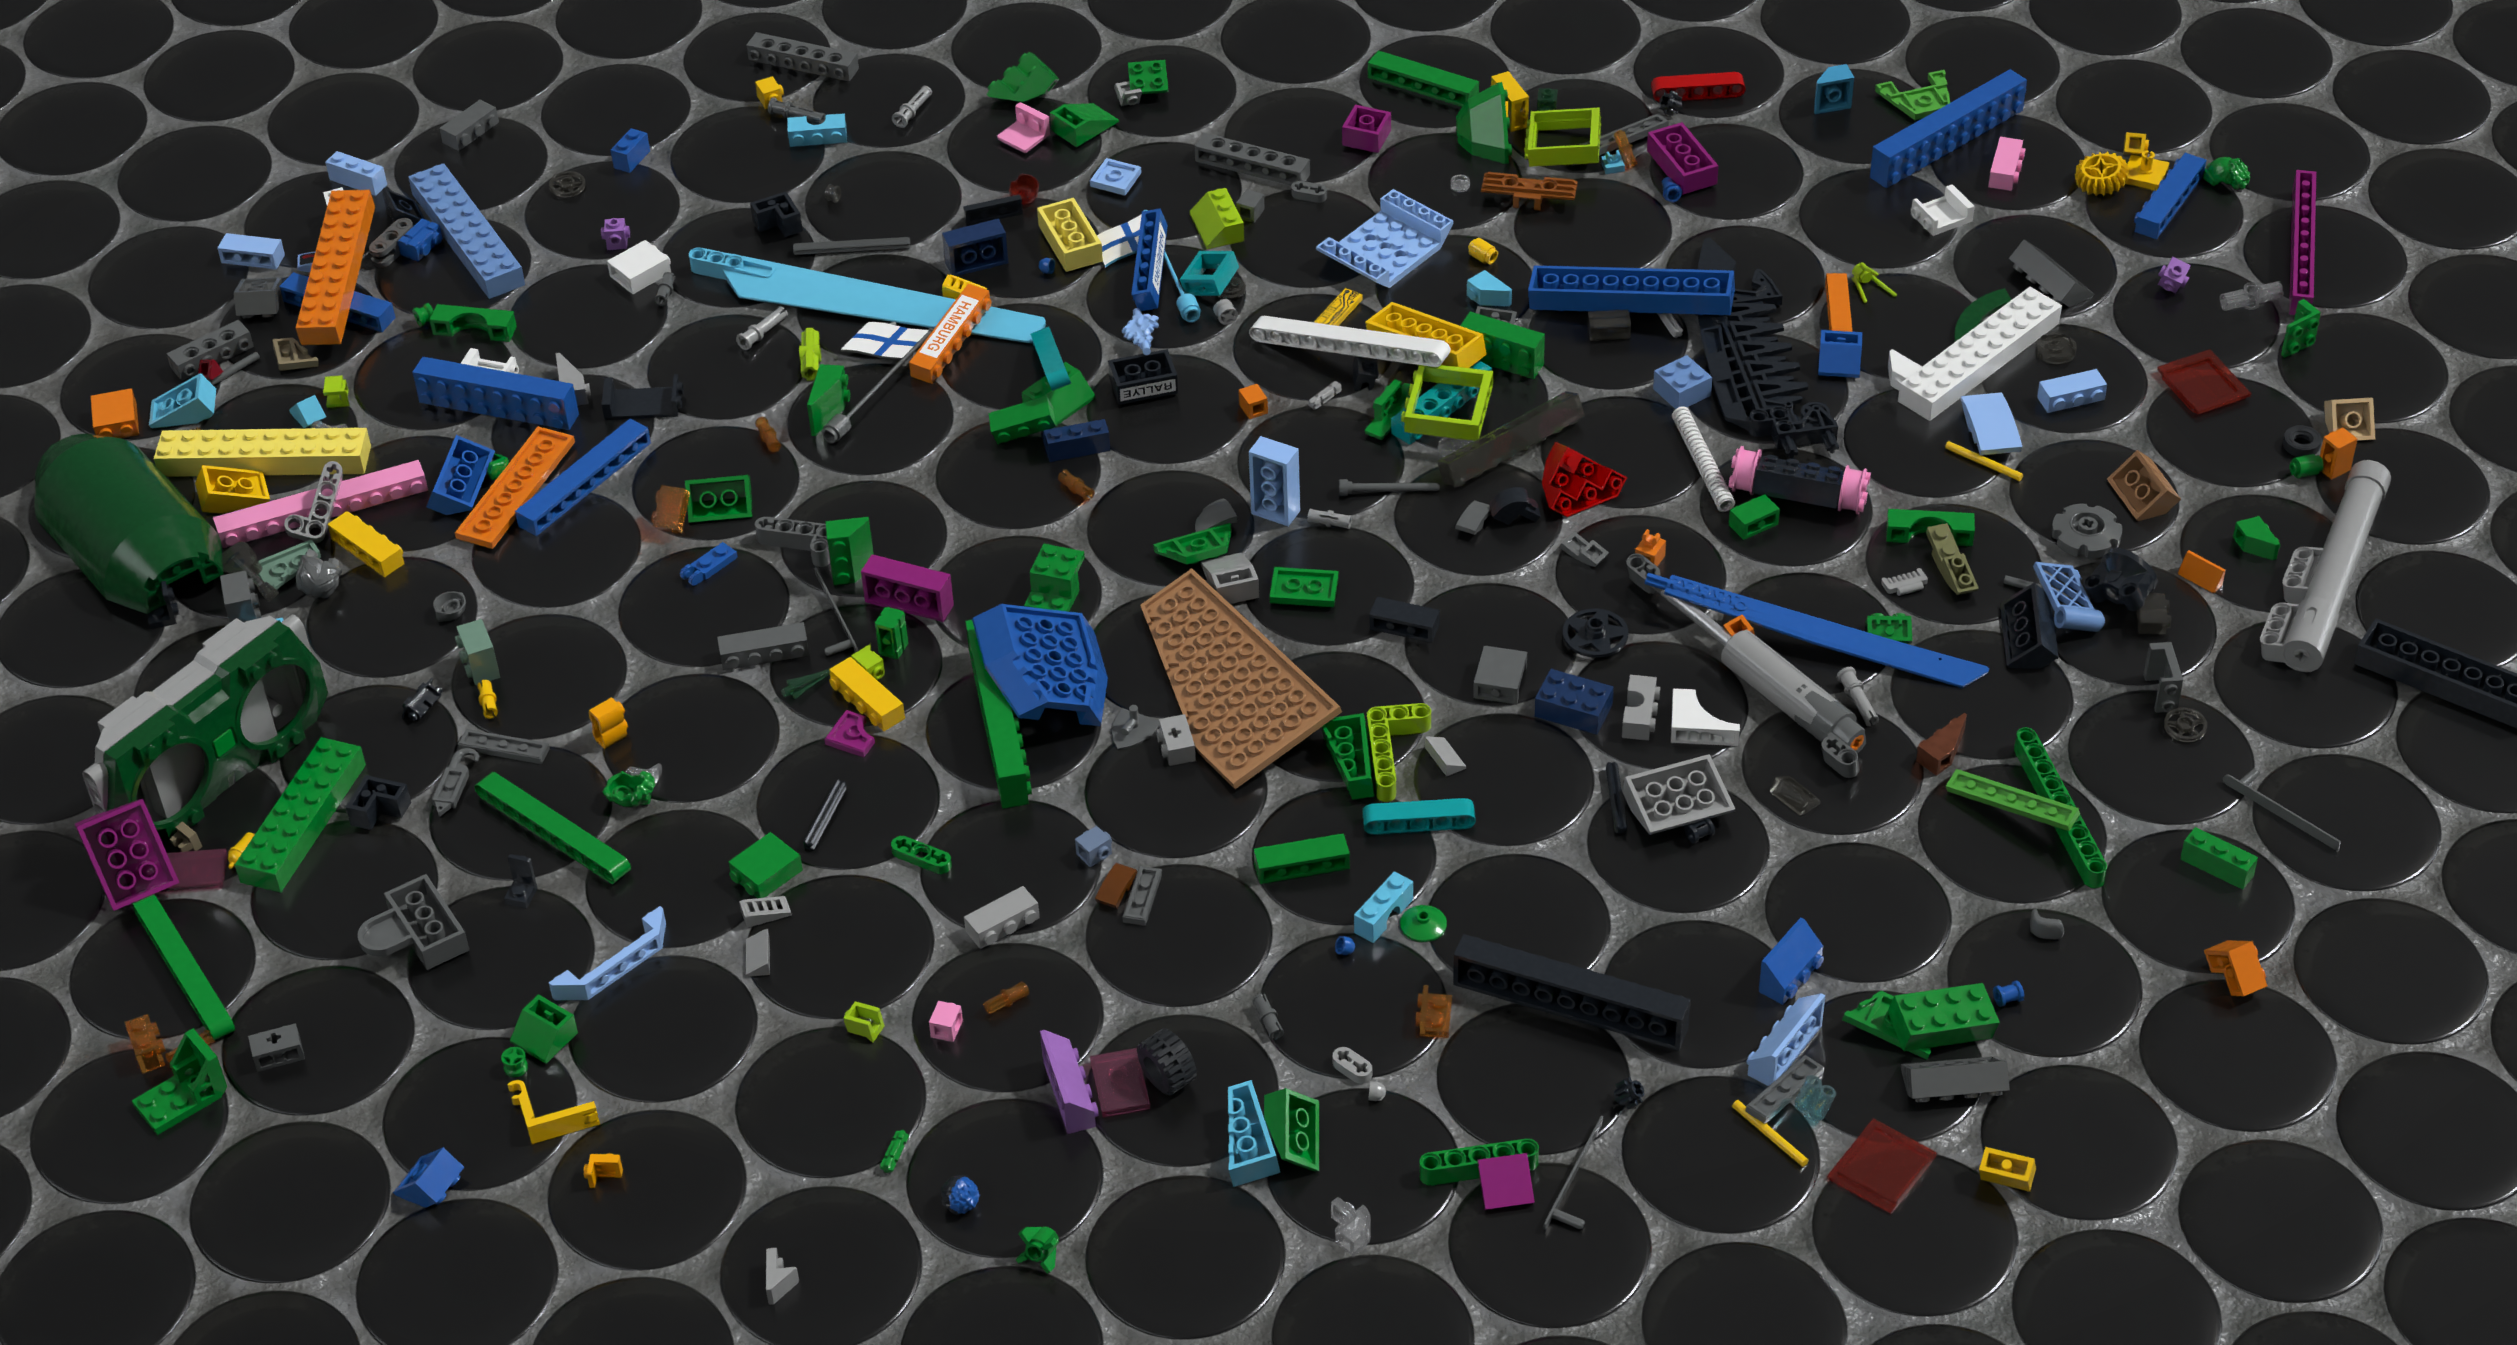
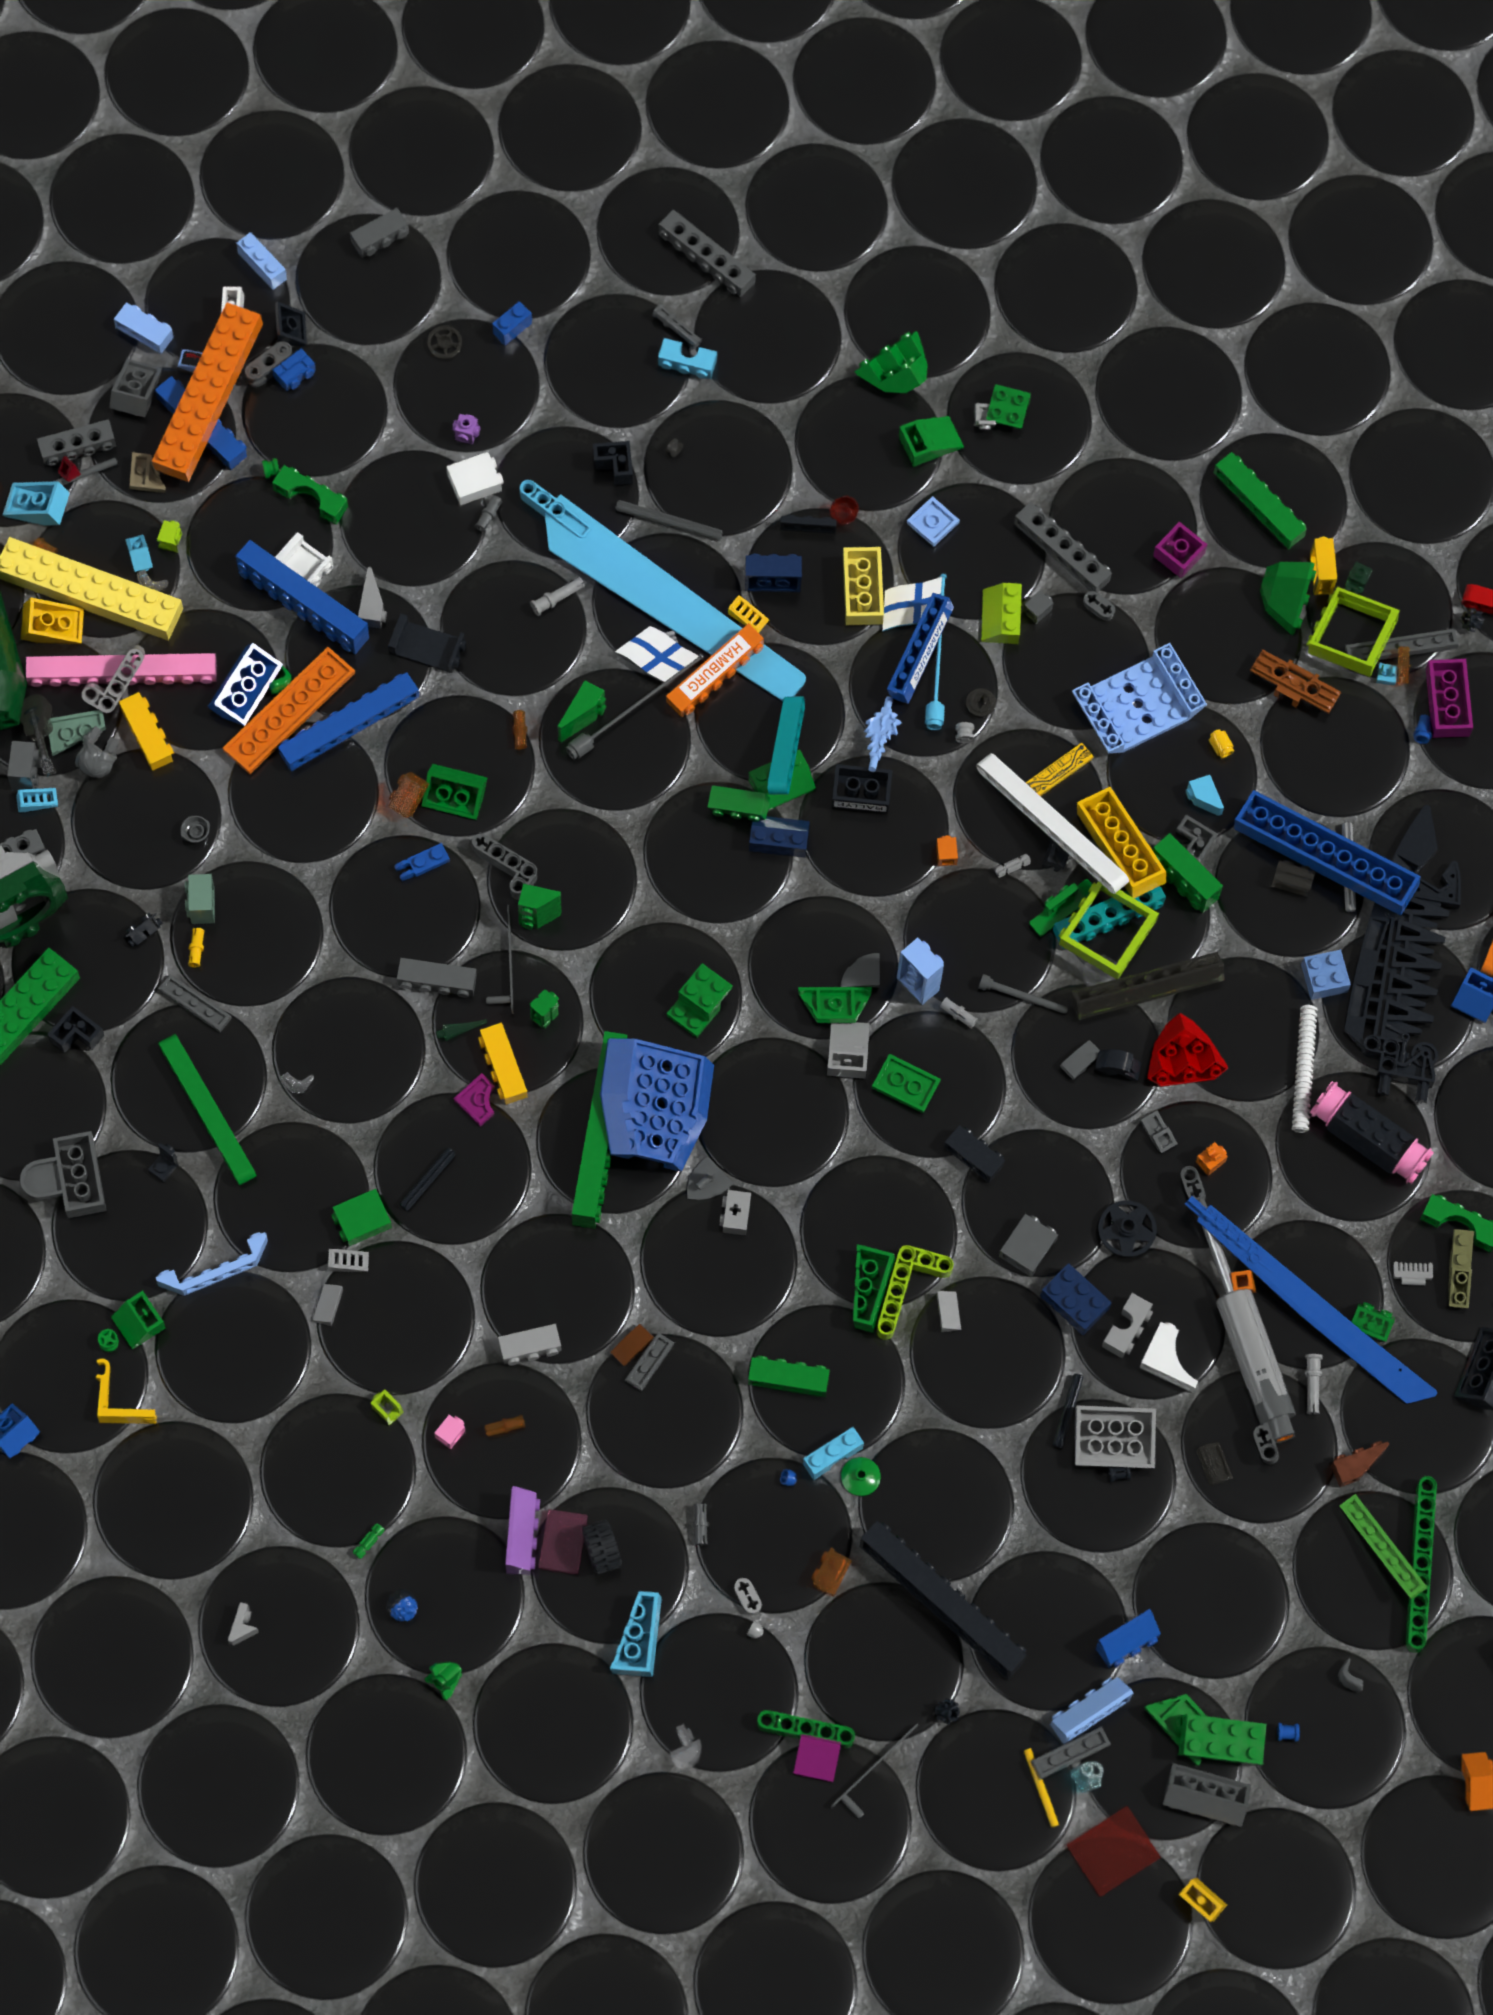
camera: 15 degrees right, 25 degrees up
(453, 781) = (143, 1028): dark grey plate -> none
(467, 231) = (337, 374): medium blue brick -> none
(602, 1166) = (149, 1470): light orange bracket -> none
(608, 722) = (283, 1019): light orange brick -> none
(629, 789) = (278, 1095): green hair -> none
(767, 89) = (661, 291): yellow brick -> none
(810, 353) = (587, 645): lime piece -> none
(870, 662) = (516, 1031): lime window -> none
(907, 588) = (574, 962): magenta brick -> none
(908, 110) = (778, 362): light grey pin -> none
(927, 862) = (495, 1265): green beam -> none
(1027, 130) = (872, 431): bright pink bracket -> none
(1047, 265) = (831, 612): blue hinge -> none
(1076, 485) = (759, 891): clear orange pin -> none
(1093, 846) = (629, 1298): sand blue brick -> none
(1193, 277) = (956, 695): teal window -> none
(1230, 681) = (803, 1173): medium nougat wing -> none
(1294, 1126) = (674, 1648): green slope -> none
(1419, 816) = (900, 1369): teal beam -> none
(1460, 183) = (1239, 646): clear tile -> none
(1754, 517) = (1317, 1152): green brick -> none

